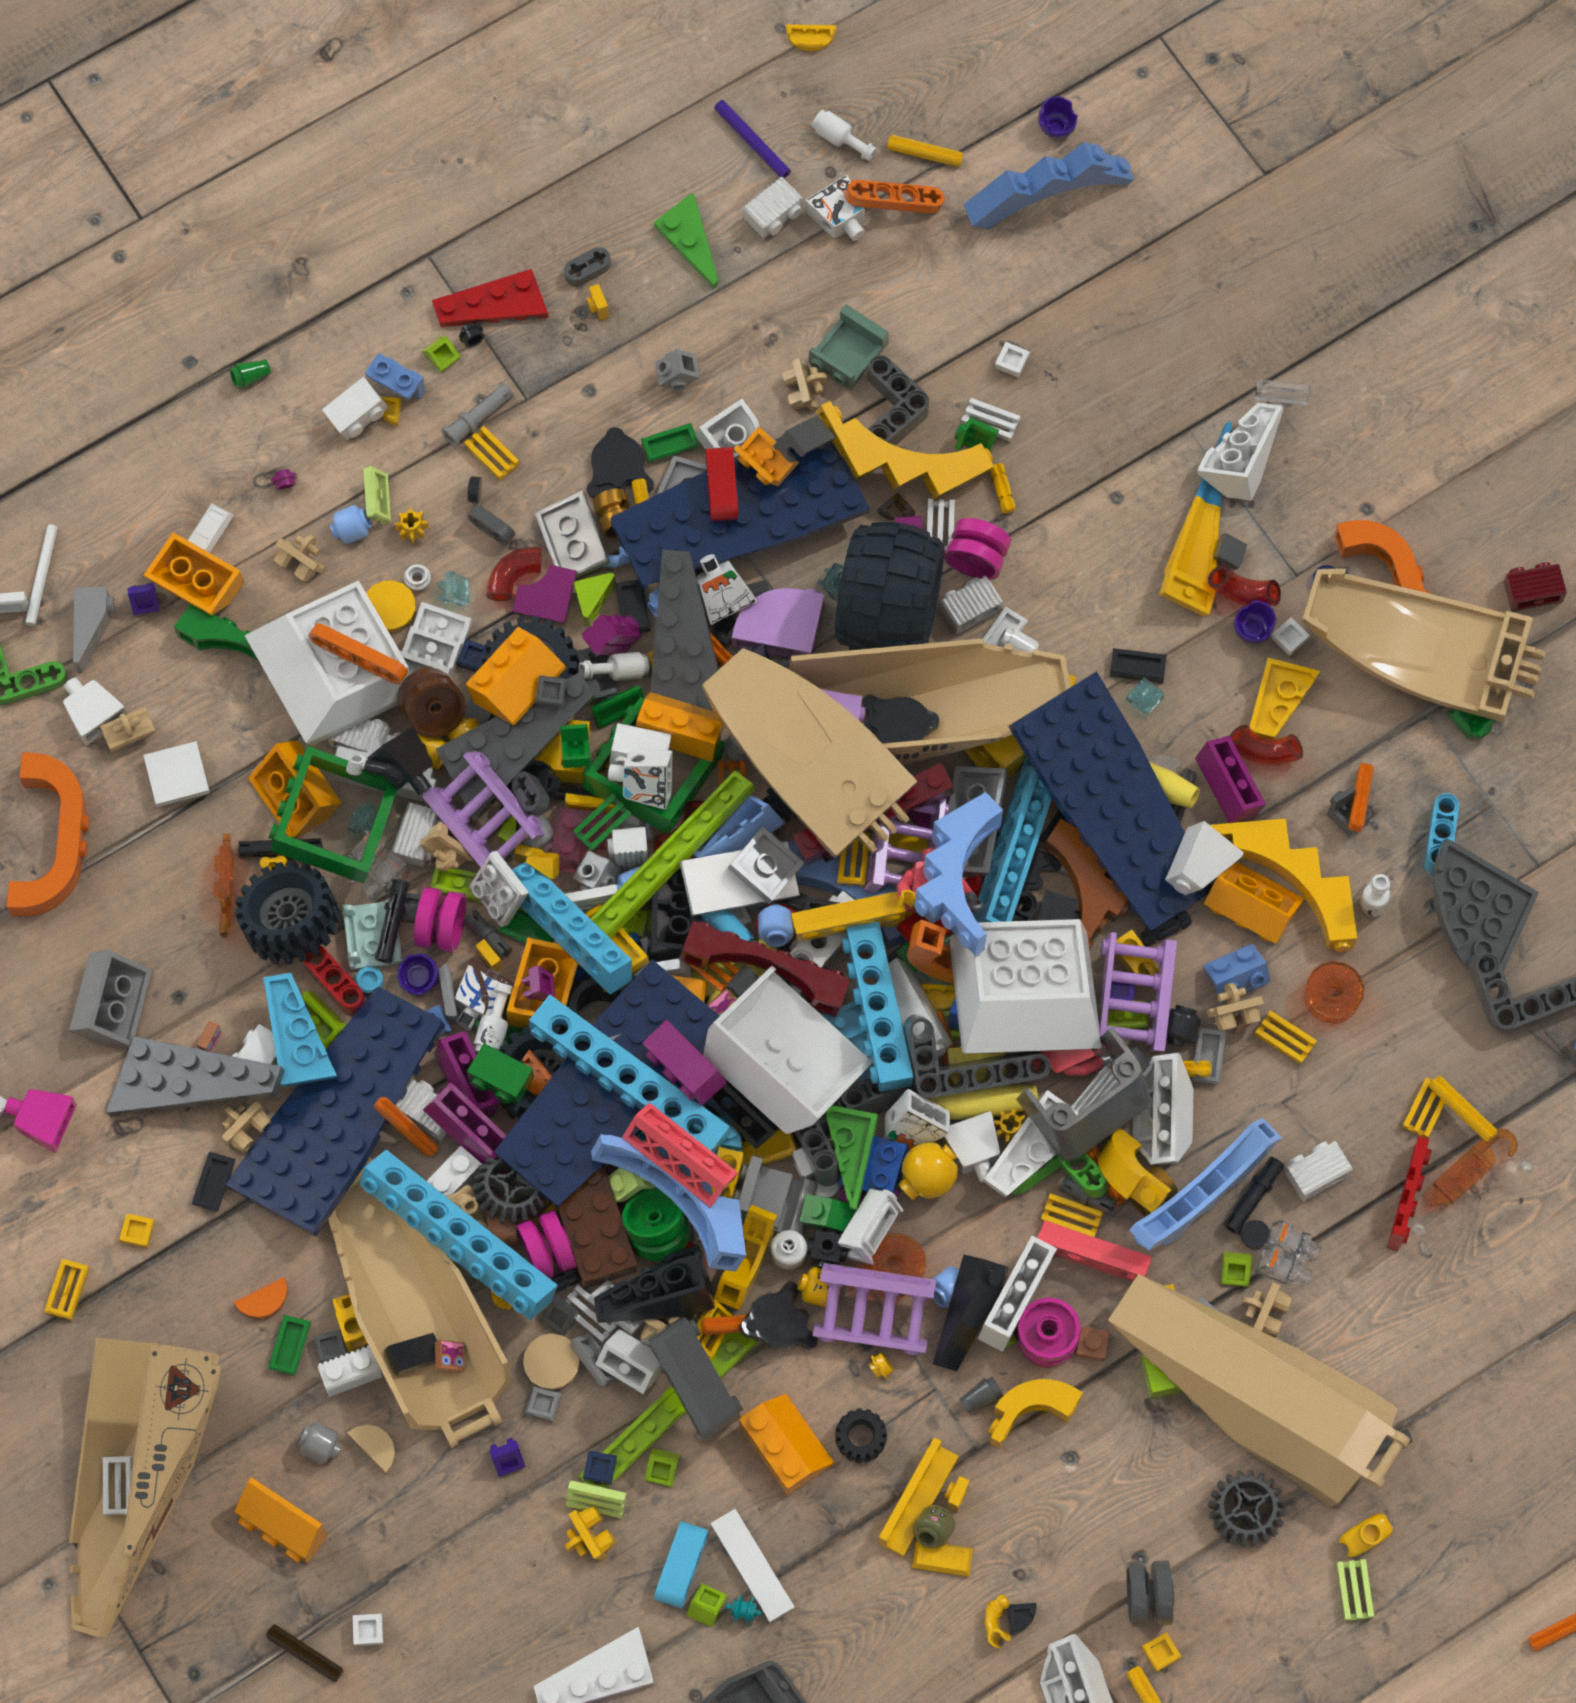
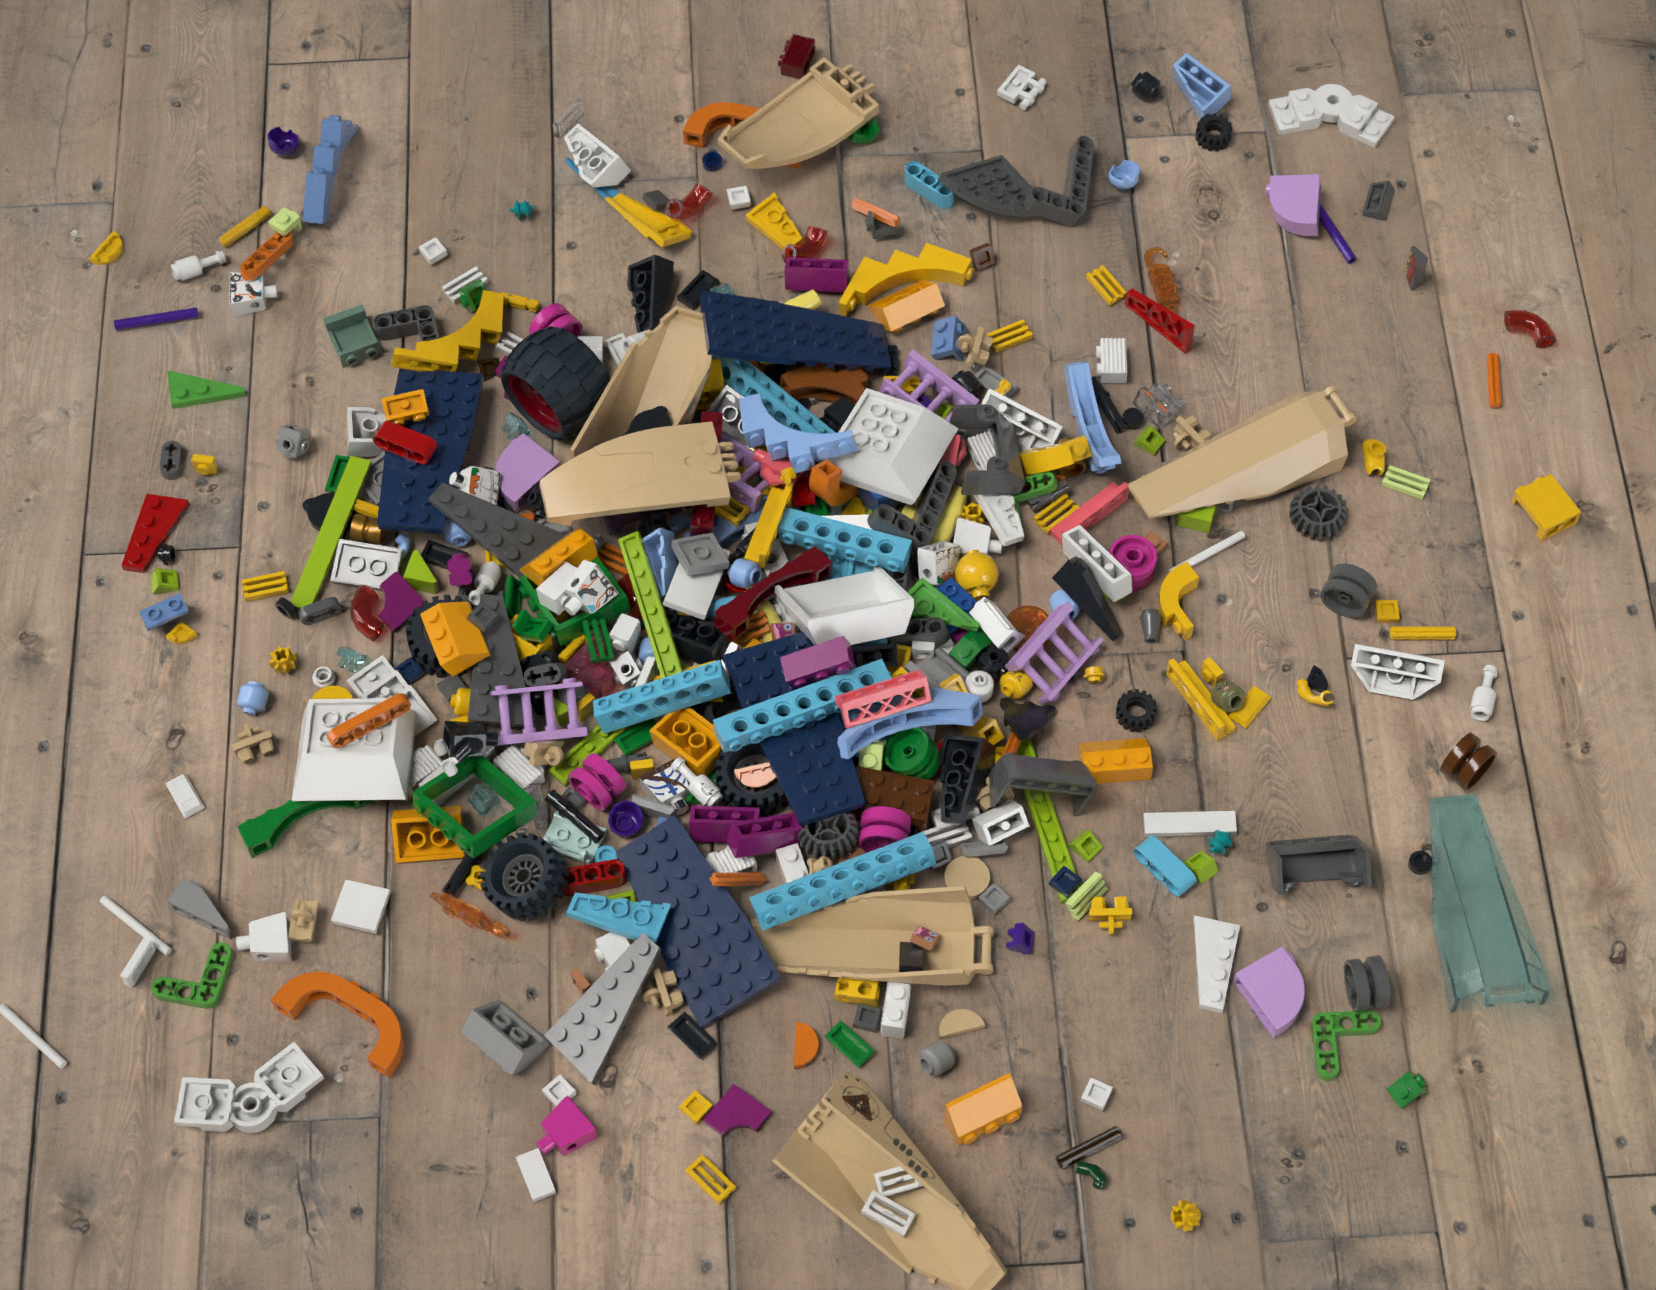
camera: 60 degrees left, 10 degrees down
(80, 1086) = (558, 1090): none -> white plate
(143, 599) = (207, 862): dark purple tile -> none
(155, 1274) = (736, 1111): none -> magenta tile
(195, 575) = (217, 813): light orange slope -> none
(249, 372) = (85, 708): green cone -> none
(278, 1674) = (1095, 1172): none -> dark green arm
(284, 479) = (185, 725): magenta plate -> none
(355, 409) = (168, 650): white brick -> none
(377, 495) = (243, 670): yellowish green tile -> none
(431, 702) = (433, 702): reddish brown wheel -> none
(468, 422) = (231, 587): light grey pin -> none
(498, 889) = (601, 730): white tile -> none
(500, 1075) = (745, 790): green brick -> none
(540, 983) = (693, 733): magenta tile -> none
(545, 863) = (602, 689): yellow slope -> none
(589, 478) = (331, 531): none -> lime tile
(742, 981) = (774, 612): dark grey tile -> none
(773, 208) = (217, 329): white brick -> none
(800, 376) = (368, 377): tan hips -> none
(804, 438) = (409, 373): dark grey hinge -> none
(950, 187) = (285, 221): none -> yellowish green bracket
(1109, 613) = (650, 286): none -> black wedge
(1122, 1412) = (1214, 549): none -> white bar
(1126, 417) = (522, 208): none -> teal wheel
(1201, 858) = (862, 312): white slope -> none
(1255, 622) = (716, 208): dark purple hair -> none
(1338, 976) = (997, 293): clear orange wheel -> none
(1375, 947) = (982, 256): none -> reddish brown tile
(1376, 896) = (950, 234): white piece -> none
(1463, 1108) = (1121, 262): yellow axle -> none

